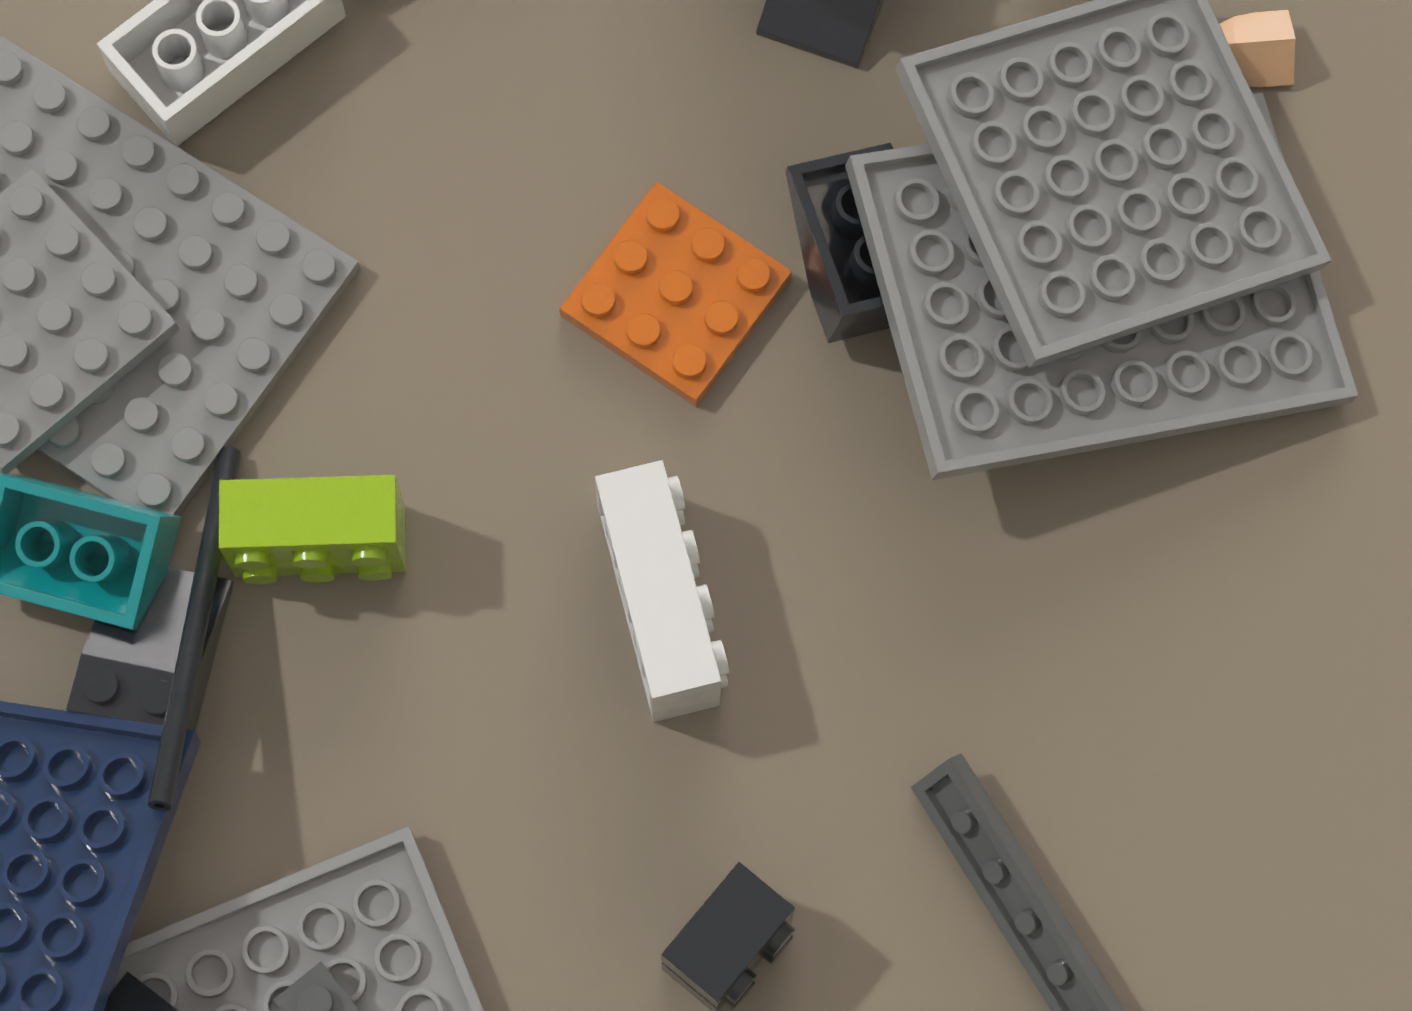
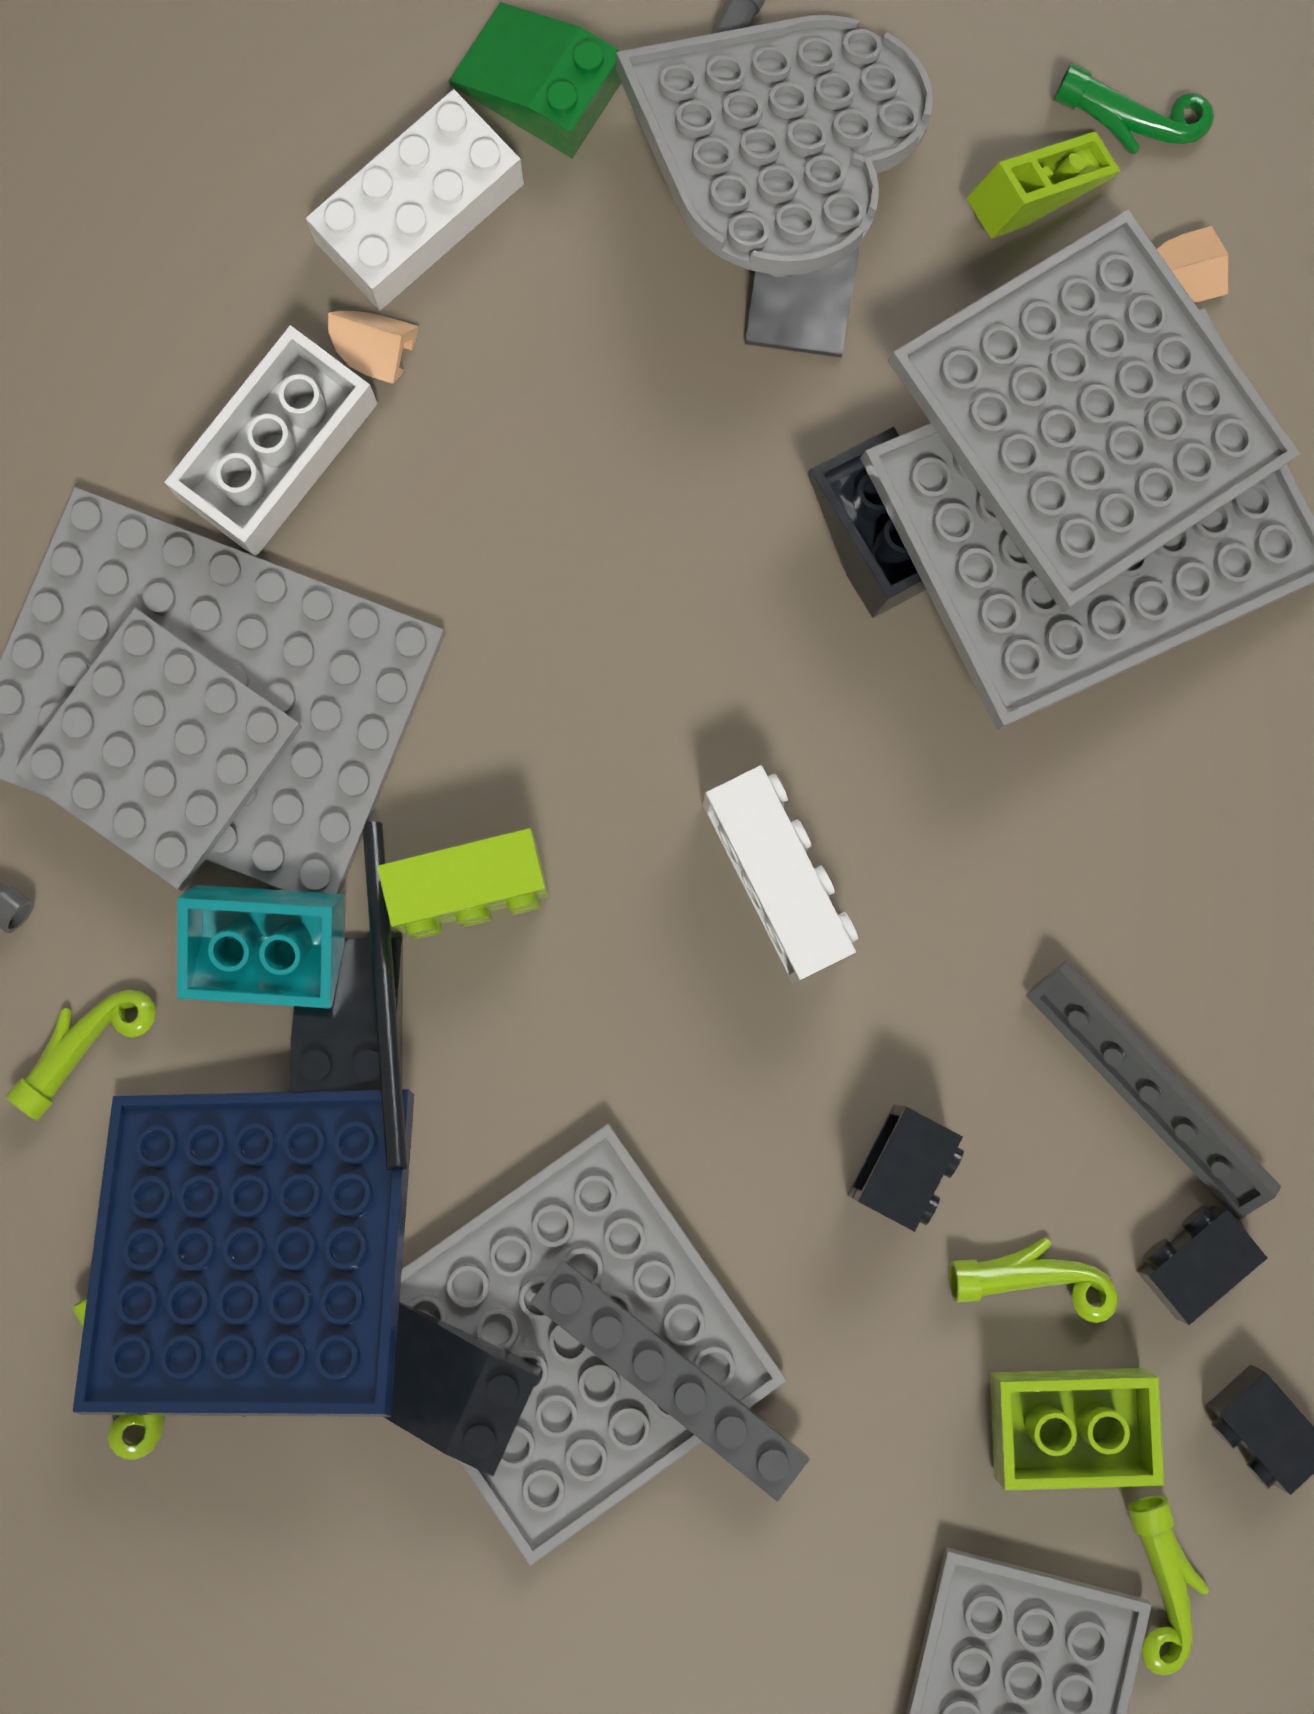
camera: 15 degrees left, 10 degrees up
(675, 293) = (728, 598): orange plate -> none

